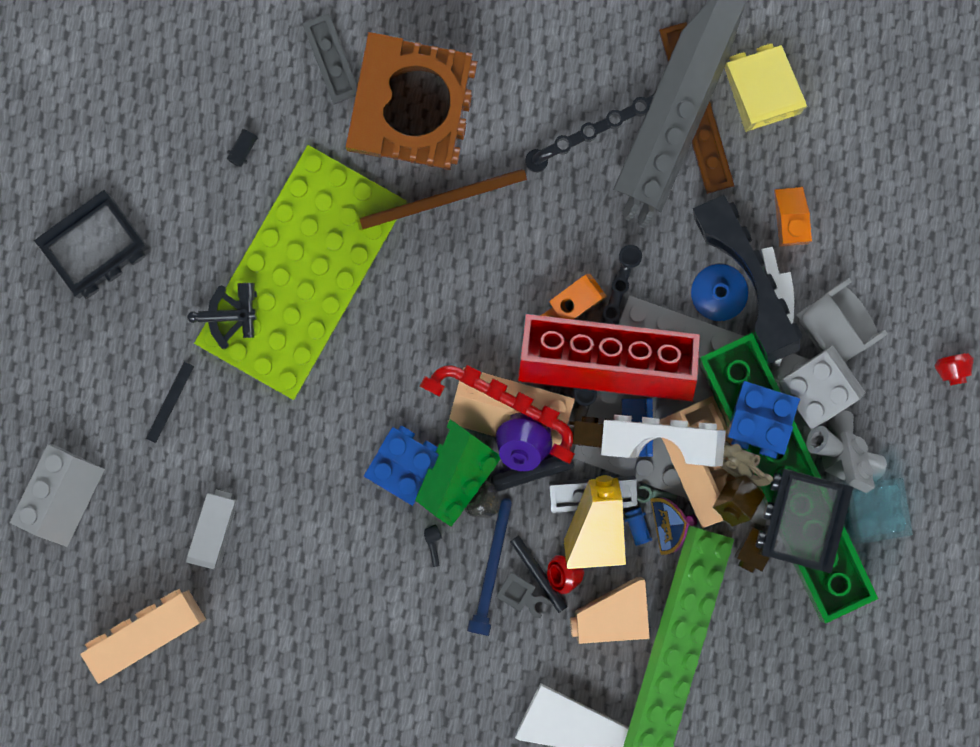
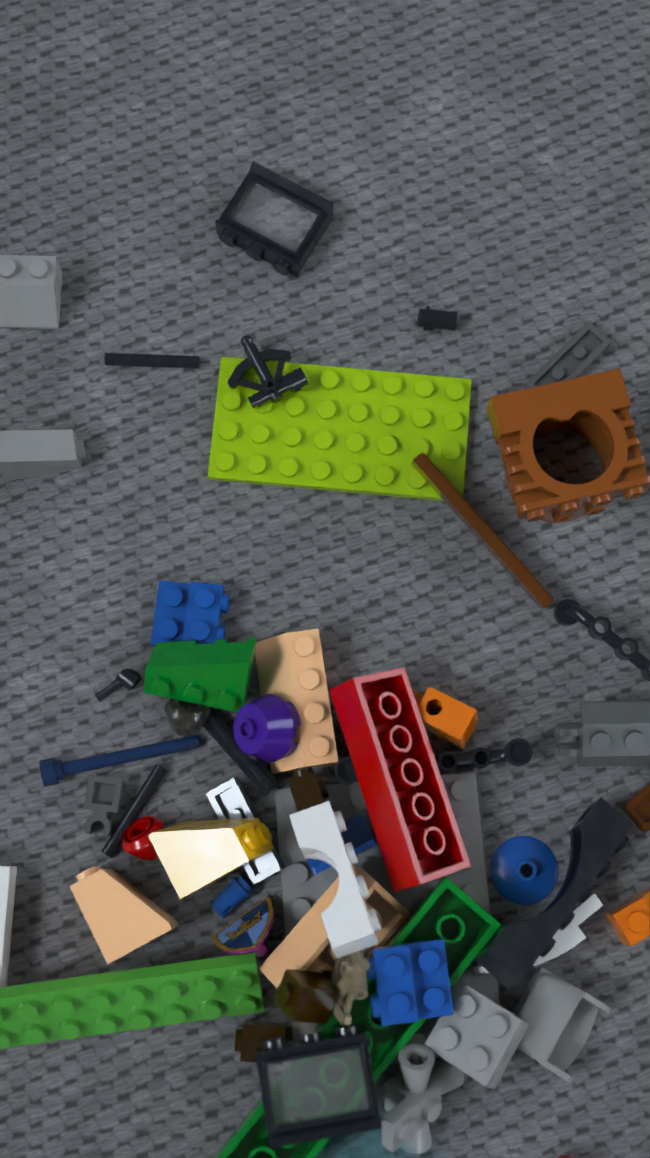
camera: 60 degrees right, 10 degrees down
(497, 391) = (306, 702): red bar -> none
(654, 494) = (275, 898): sand green hand -> none

